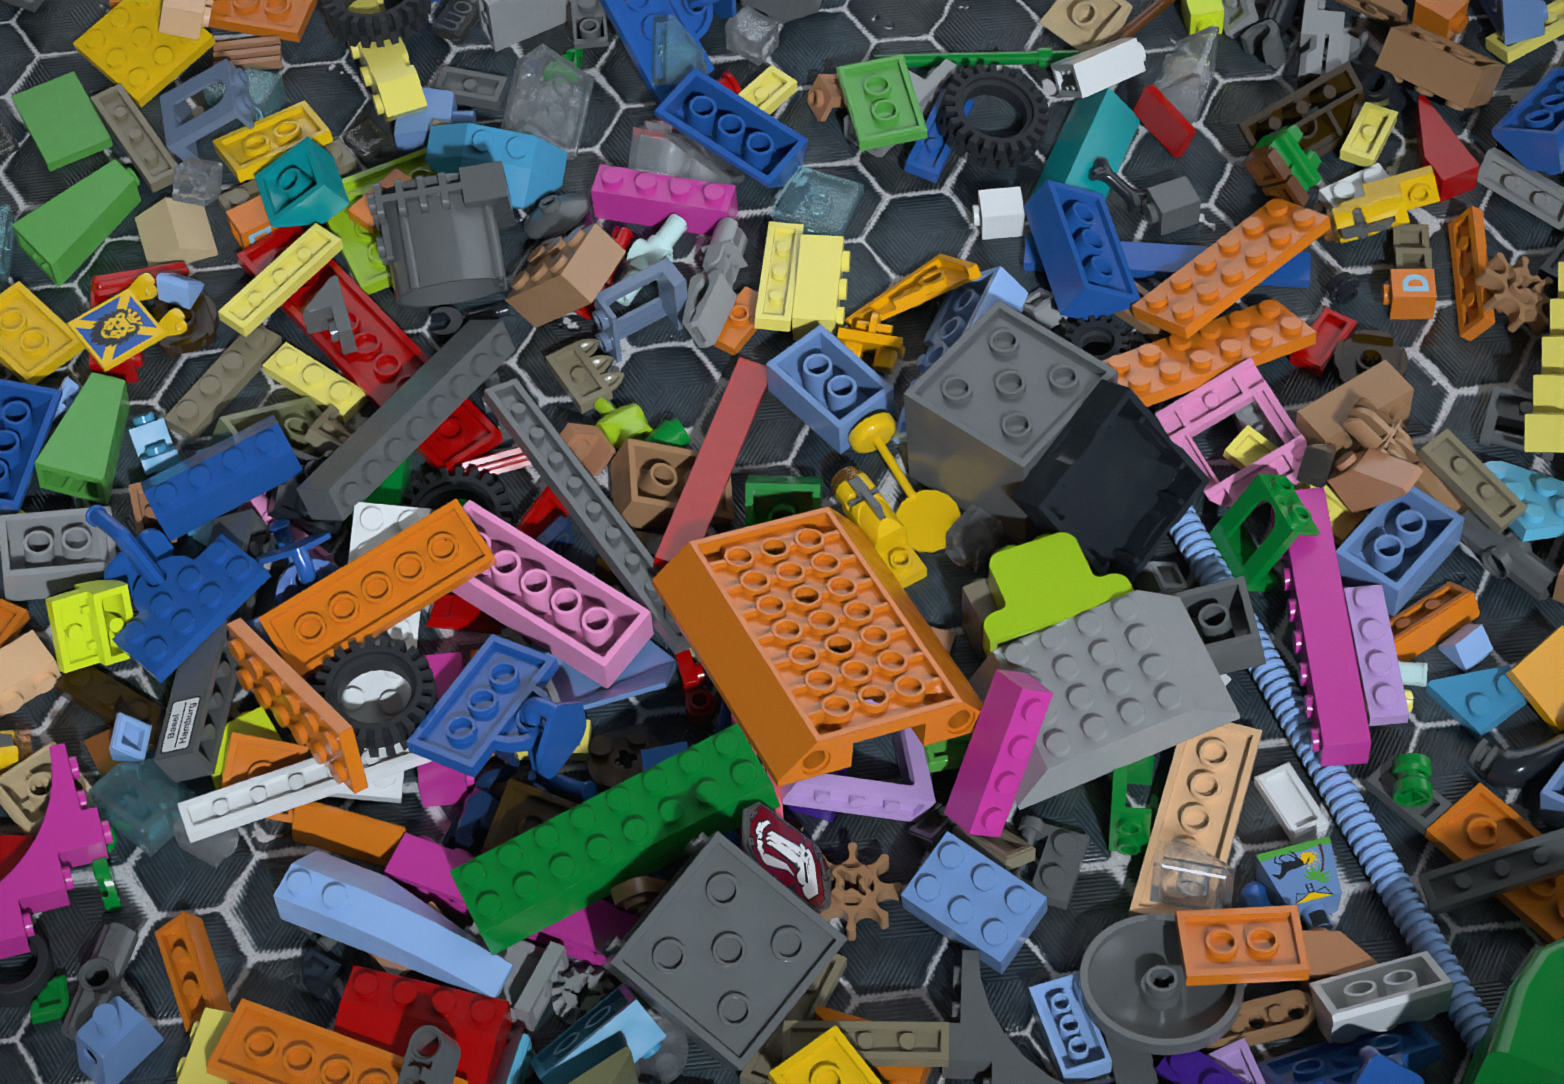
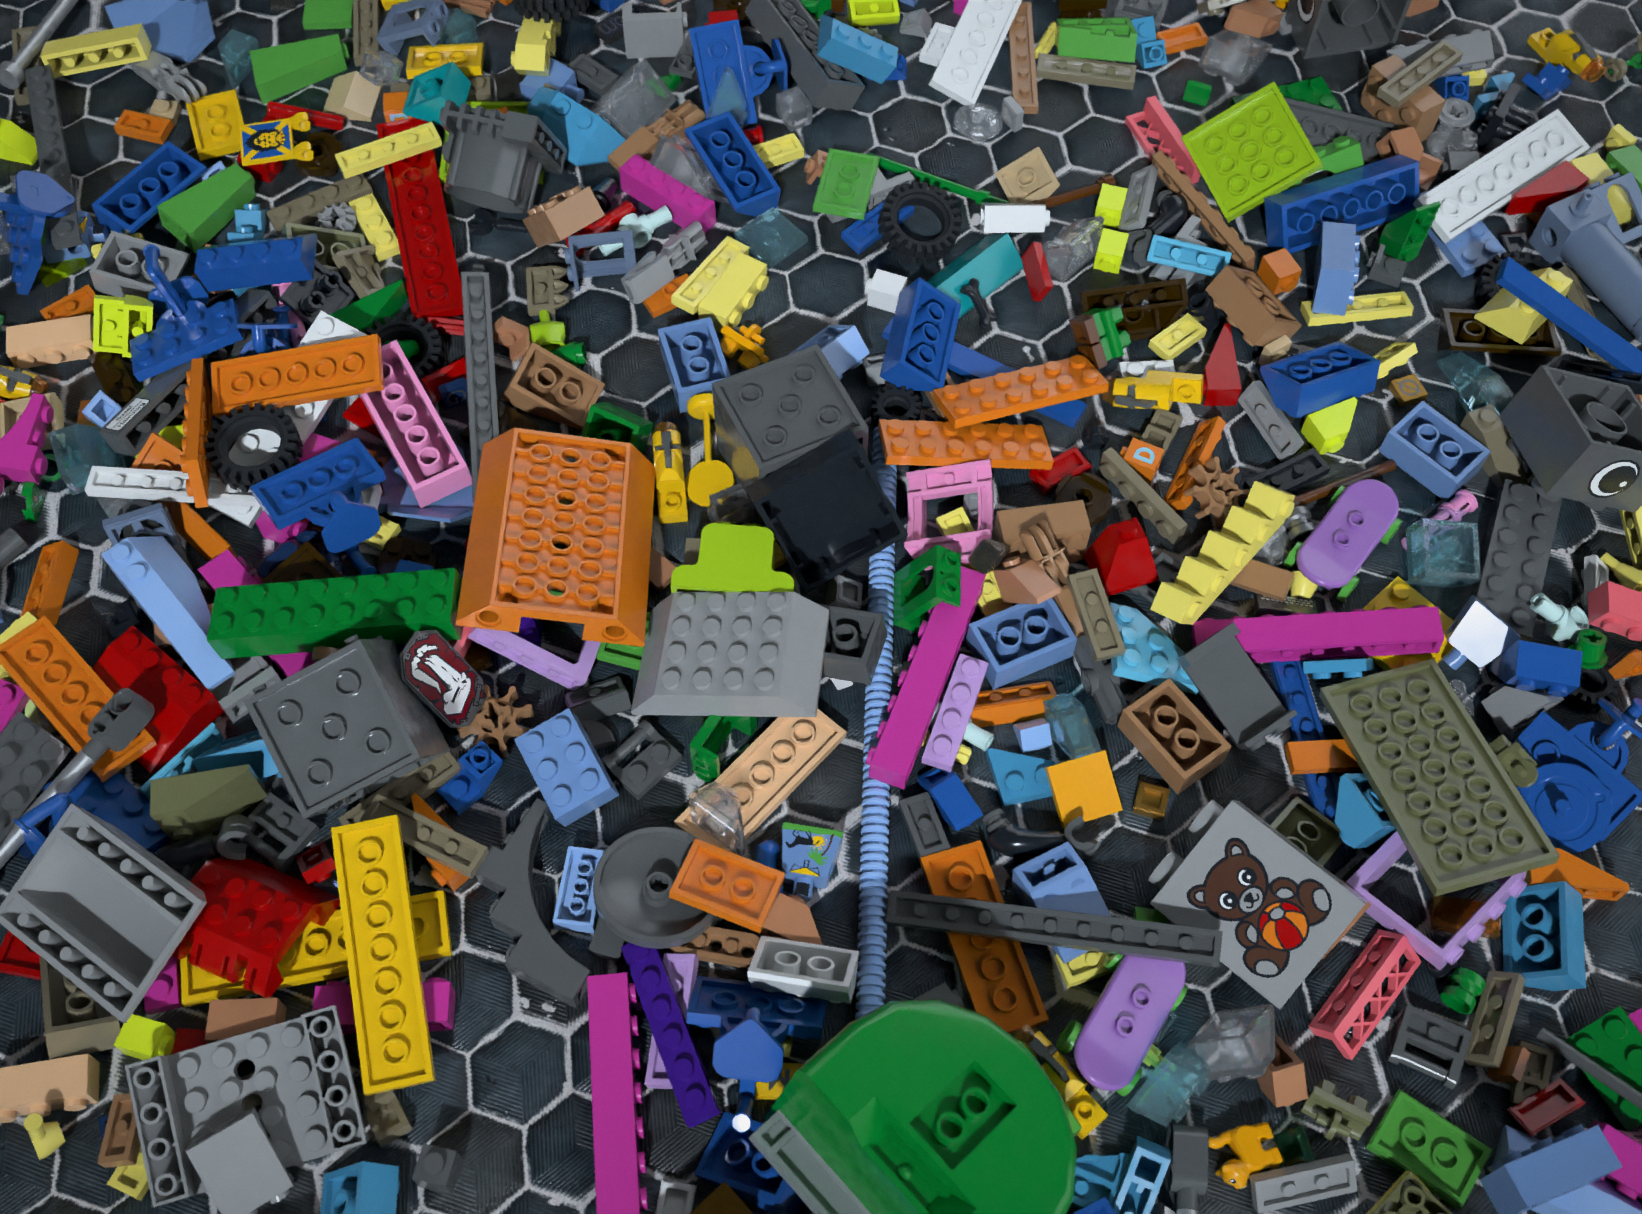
camera: 20 degrees right, 5 degrees up
(178, 289) = (324, 131): light blue slope -> none
(273, 847) = (141, 520): none -> sand blue piece
(277, 392) = (346, 214): none -> light grey gear
(329, 313) = (404, 185): dark grey slope -> none
(405, 420) = (397, 271): dark grey brick -> none
(555, 215) = (593, 176): dark grey dish -> none
(600, 140) = (645, 139): none -> medium nougat arm
(715, 460) = (587, 381): tile -> none
(866, 965) = (470, 784): none -> blue slope
(927, 282) = (794, 321): light orange wing -> none
(998, 753) = (633, 667): dark pink brick -> none
(1005, 850) = (609, 730): dark tan tile -> none
(1172, 205) = (1008, 332): dark grey brick -> none
(1235, 63) = (1110, 251): none -> neon yellow brick
(1291, 803) = (839, 794): white tile -> none
(1333, 34) = (1187, 256): none -> medium azure slope
(1412, 782) = (927, 816): green wheel -> none
(1416, 738) = (951, 797): none -> blue slope
(1435, 332) = (1147, 501): none -> dark tan plate
(1456, 400) = (1122, 557): none -> red slope
(1489, 108) = (1275, 350): none -> tan plate
(1509, 616) = (1070, 726): none -> clear light blue slope

